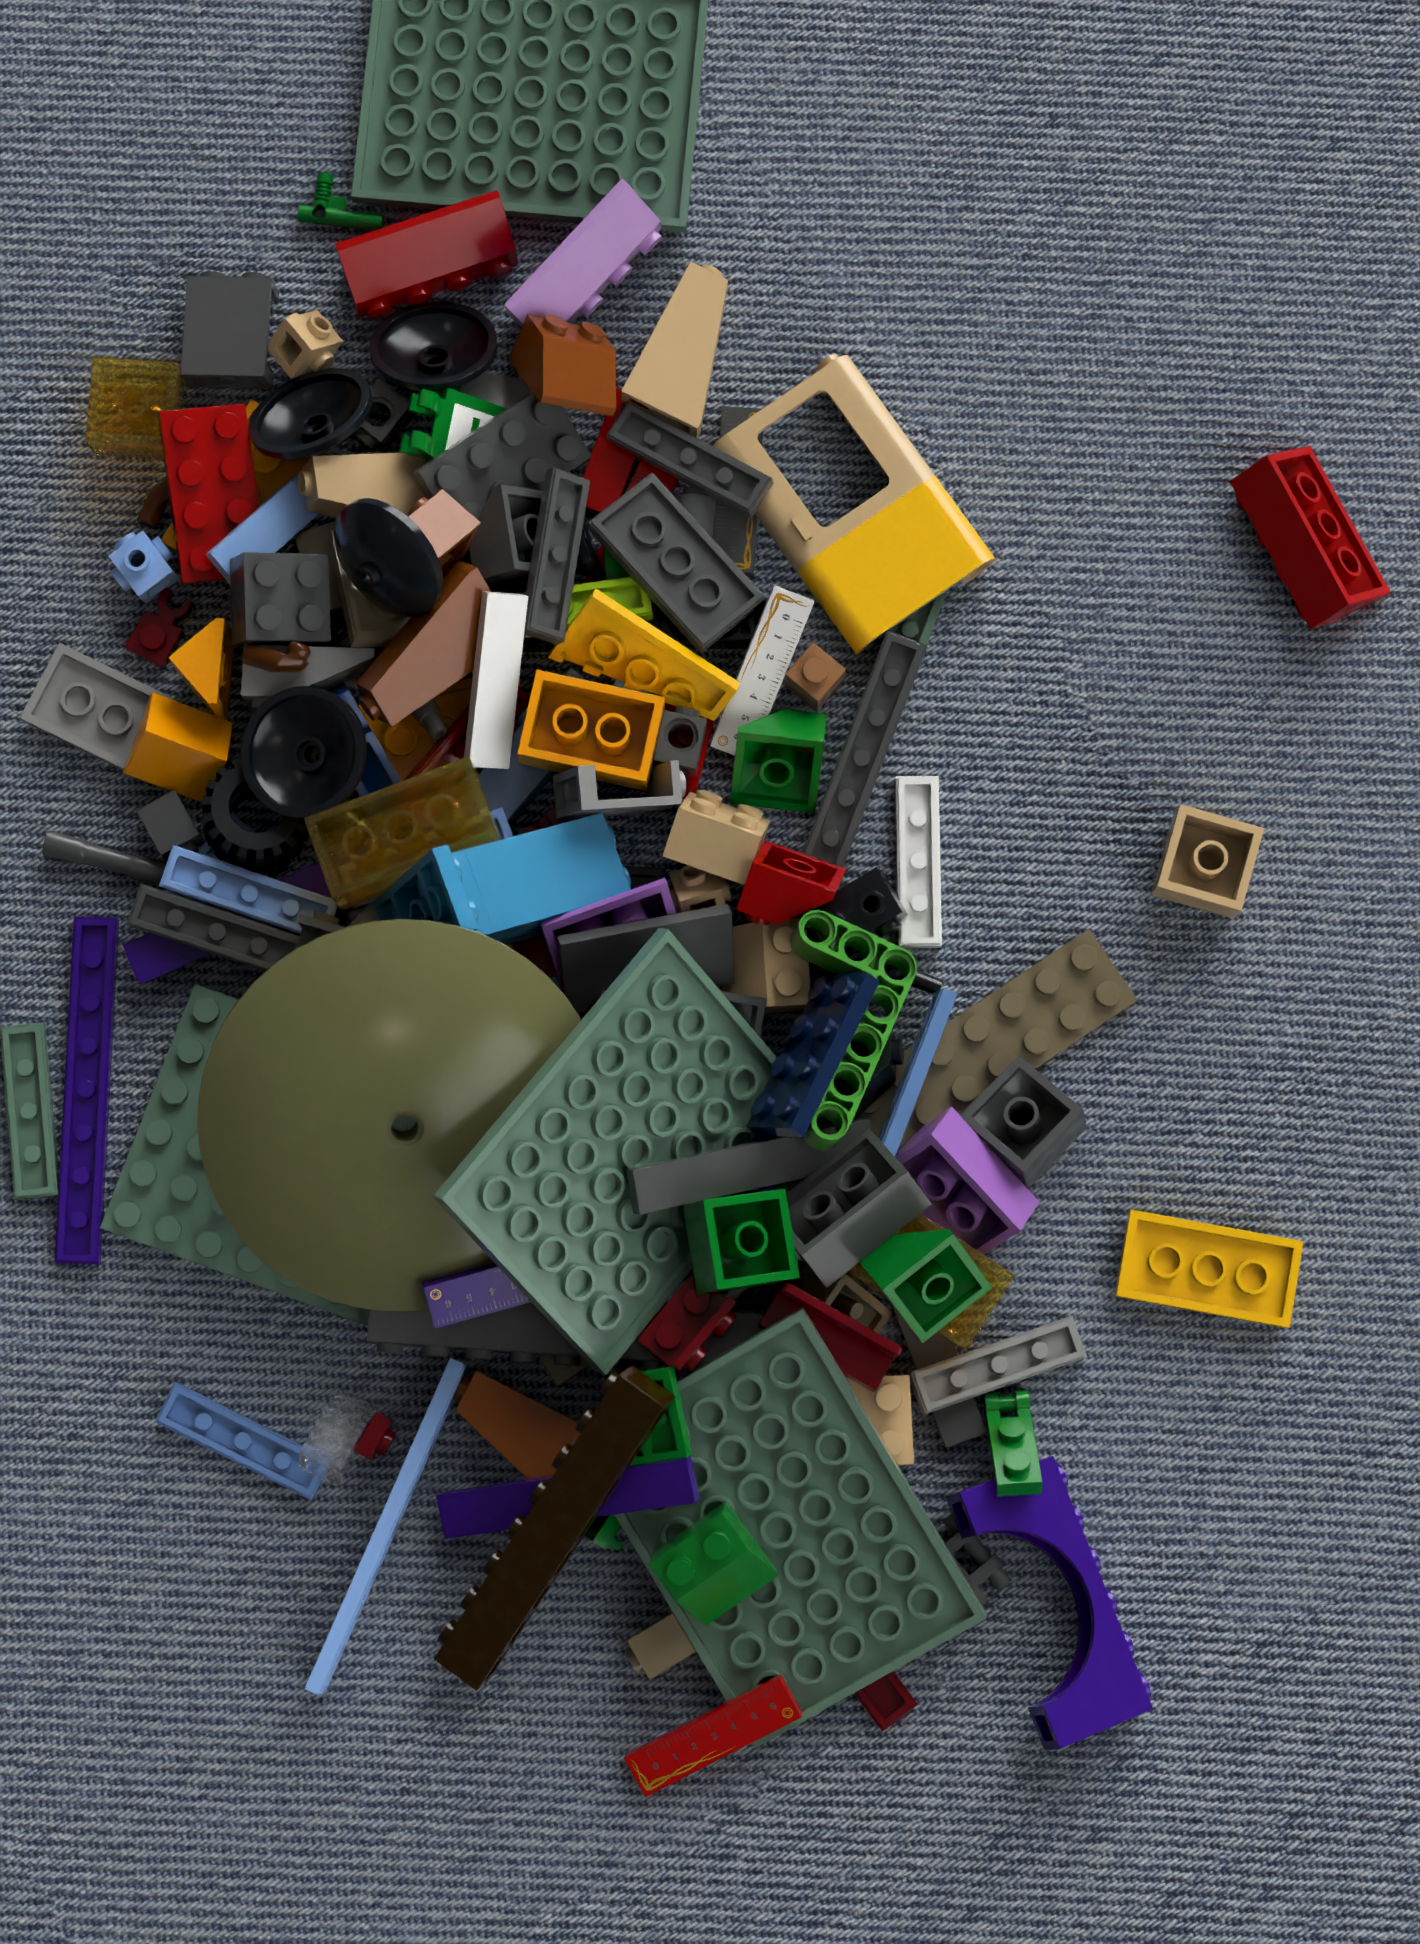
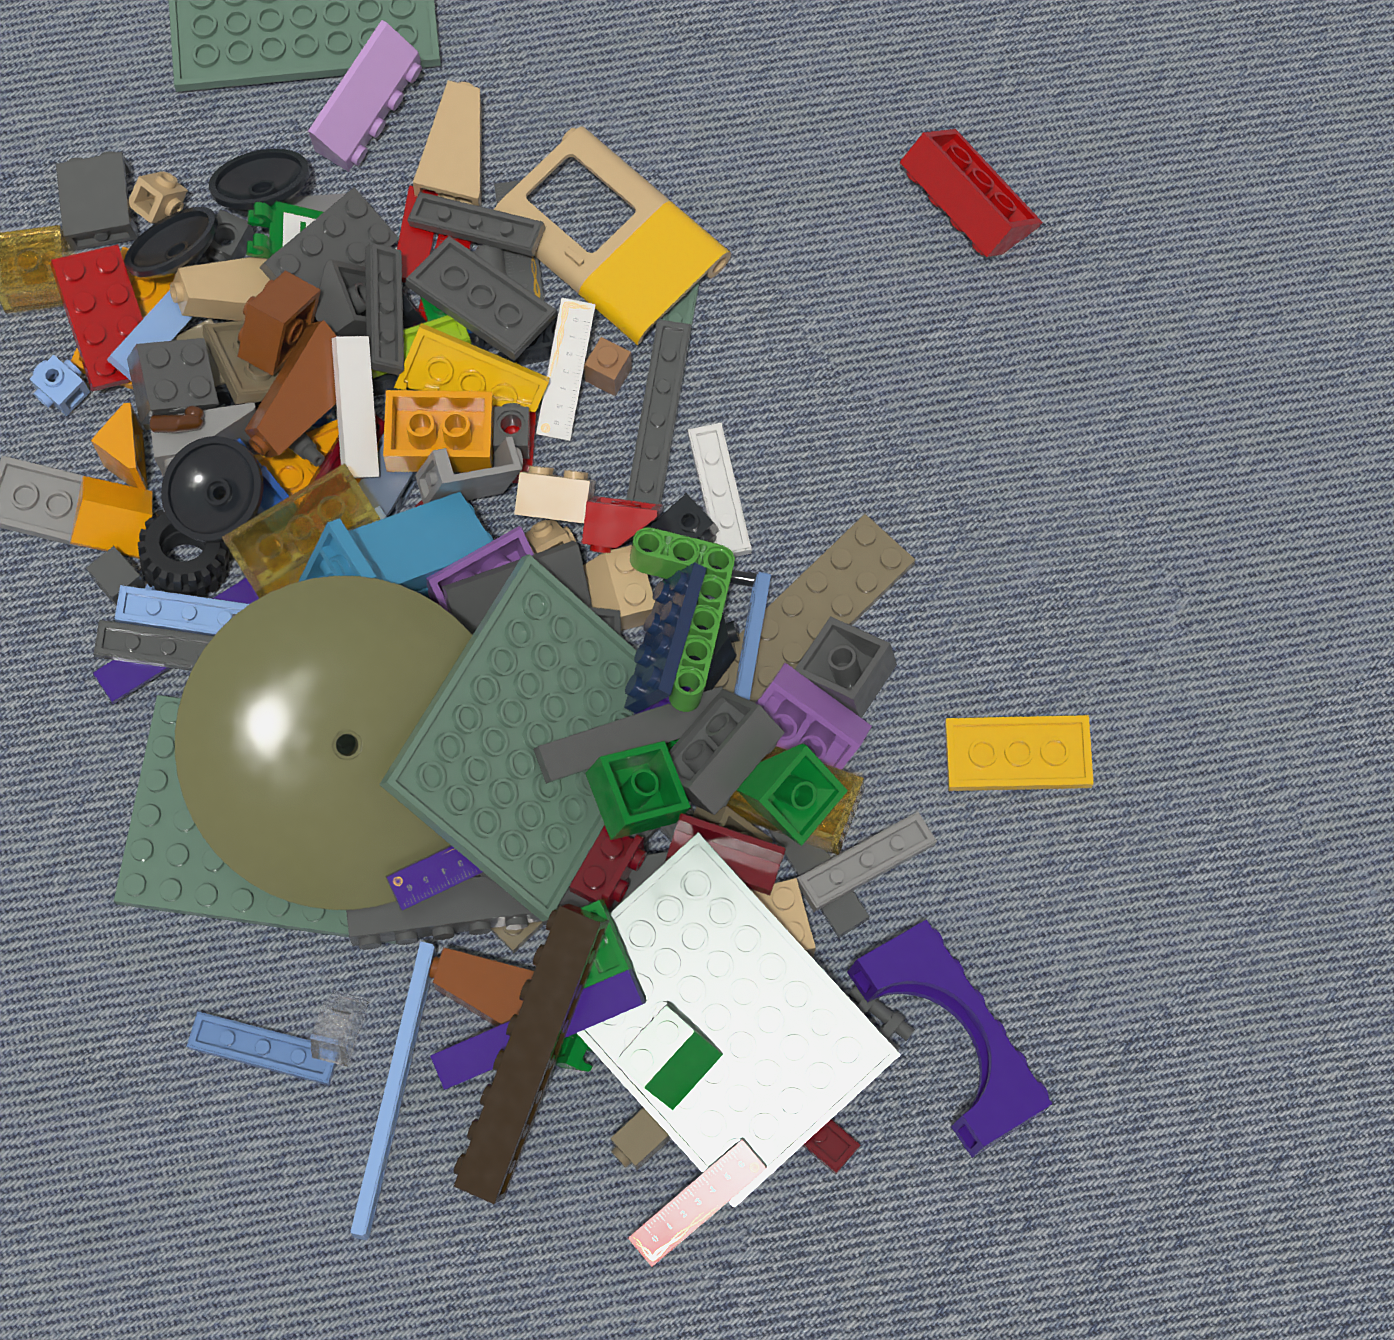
camera: 10 degrees left, 10 degrees down
(29, 1111) = (40, 823): sand green tile -> none
(82, 852) = (46, 612): dark grey piece -> none
(87, 1091) = (84, 798): dark purple tile -> none
(154, 506) = (61, 340): reddish brown arm -> none
(157, 636) = (76, 436): dark red plate -> none
(336, 209) = (164, 99): green hose -> none
(376, 1437) = (372, 1020): dark red plate -> none
(388, 558) = (252, 325): black dish -> none
(428, 255) = (241, 113): red slope -> none
(567, 364) = (366, 167): dark orange slope -> none
(779, 761) = (593, 434): green slope -> none
(1012, 1444) = (891, 916): green plate -> none
(1207, 861) = (946, 442): tan brick -> none

